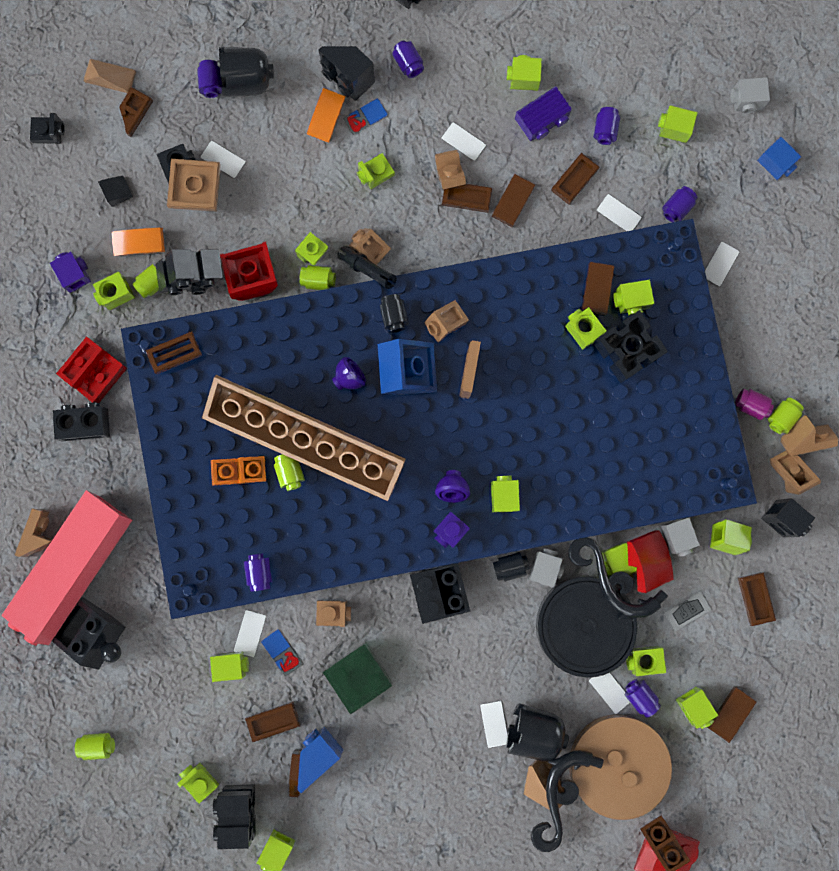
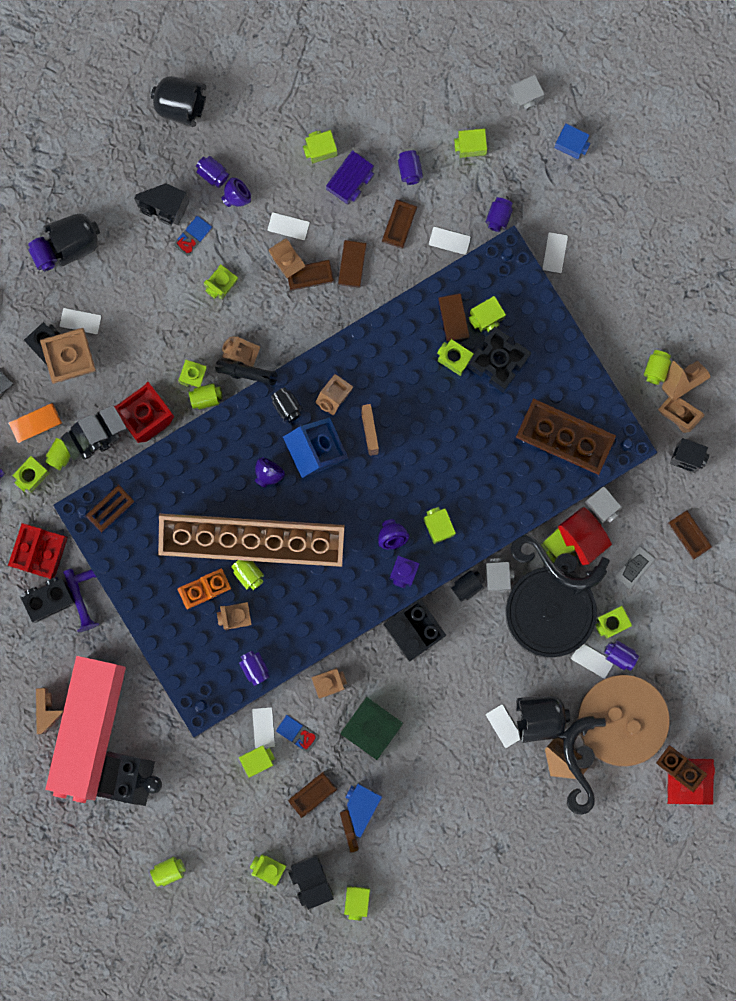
camera: 20 degrees left, 0 degrees up
(114, 413) = (72, 581): none -> dark purple piece
(258, 510) = (234, 616): none -> medium nougat bracket
(326, 115) = (158, 248): orange slope -> none
(423, 88) = (236, 193): none -> dark purple brick
(670, 452) = (566, 436): none -> reddish brown slope
(697, 708) = (671, 646): lime brick -> none
(731, 537) = (647, 490): lime brick -> none
(732, 714) = (703, 641): reddish brown tile -> none
(754, 404) = (627, 366): magenta brick -> none

